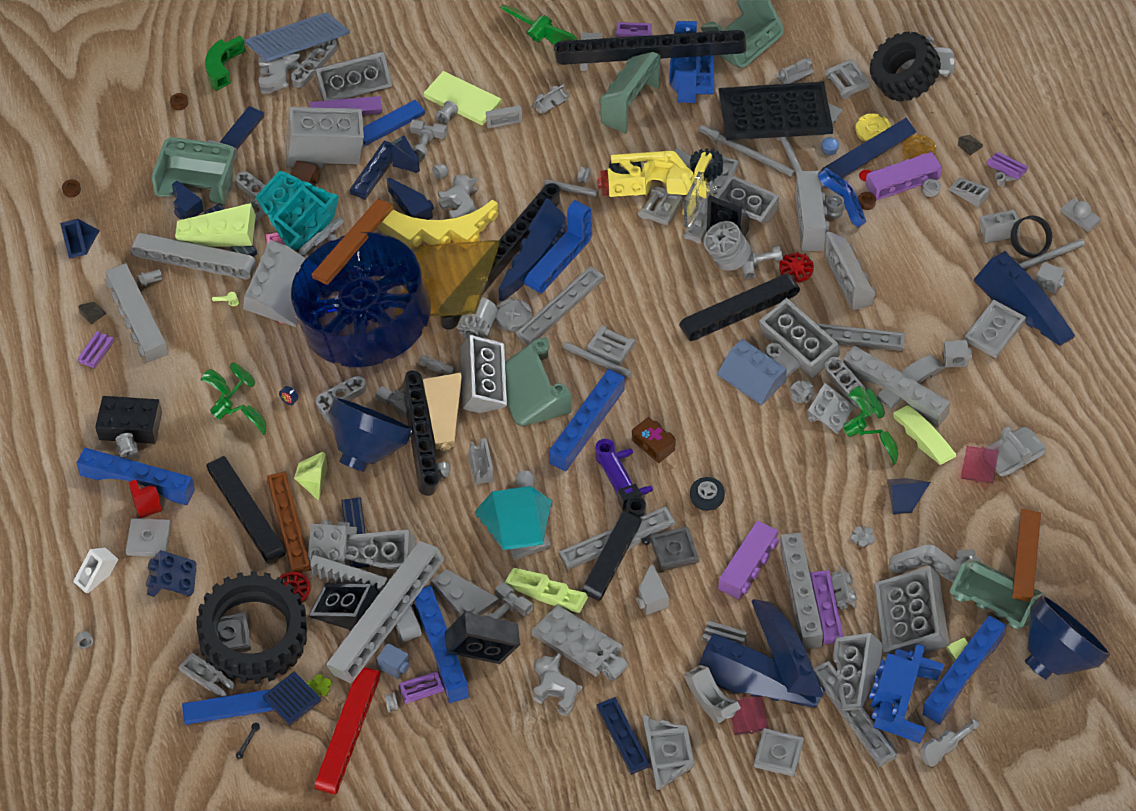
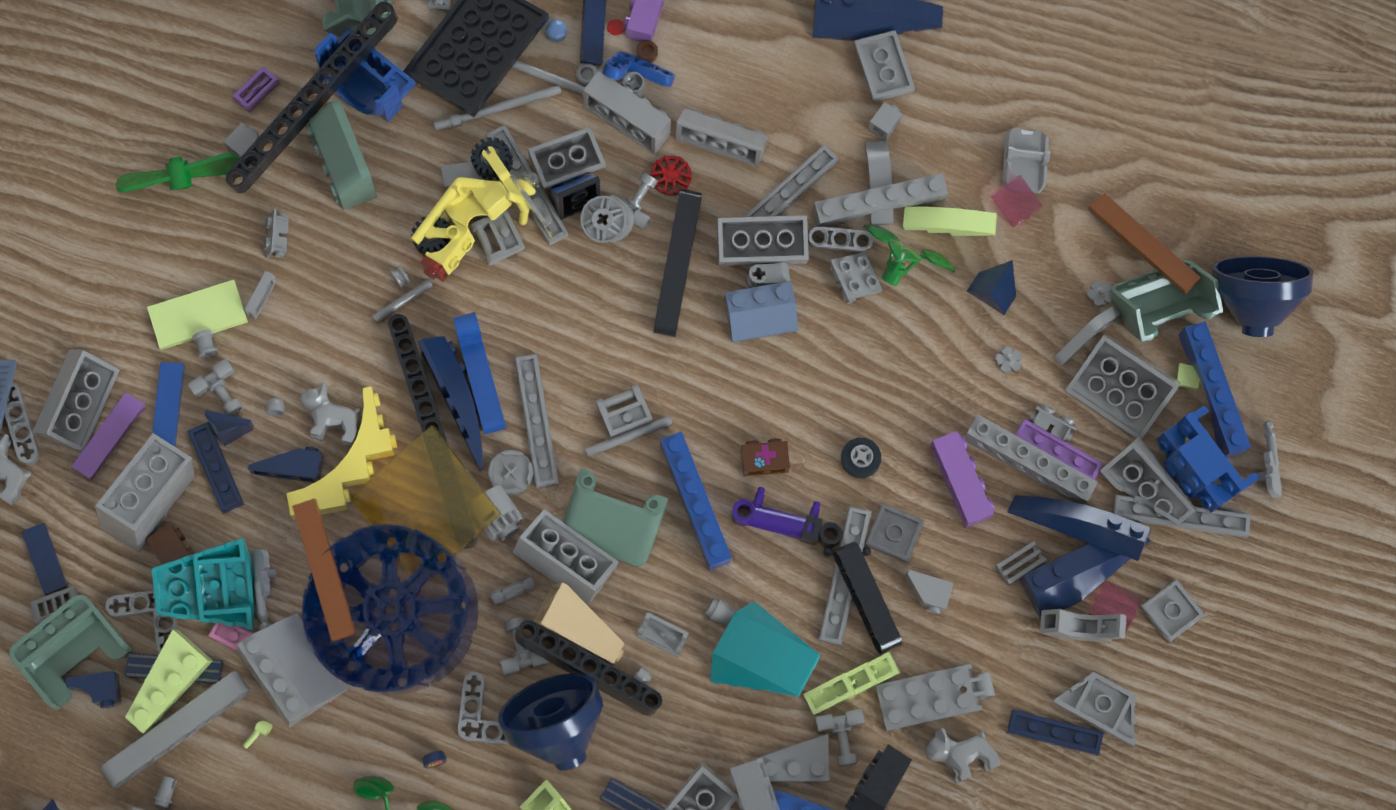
camera: 60 degrees left, 20 degrees up
(801, 391) = (819, 286): light grey gear -> none

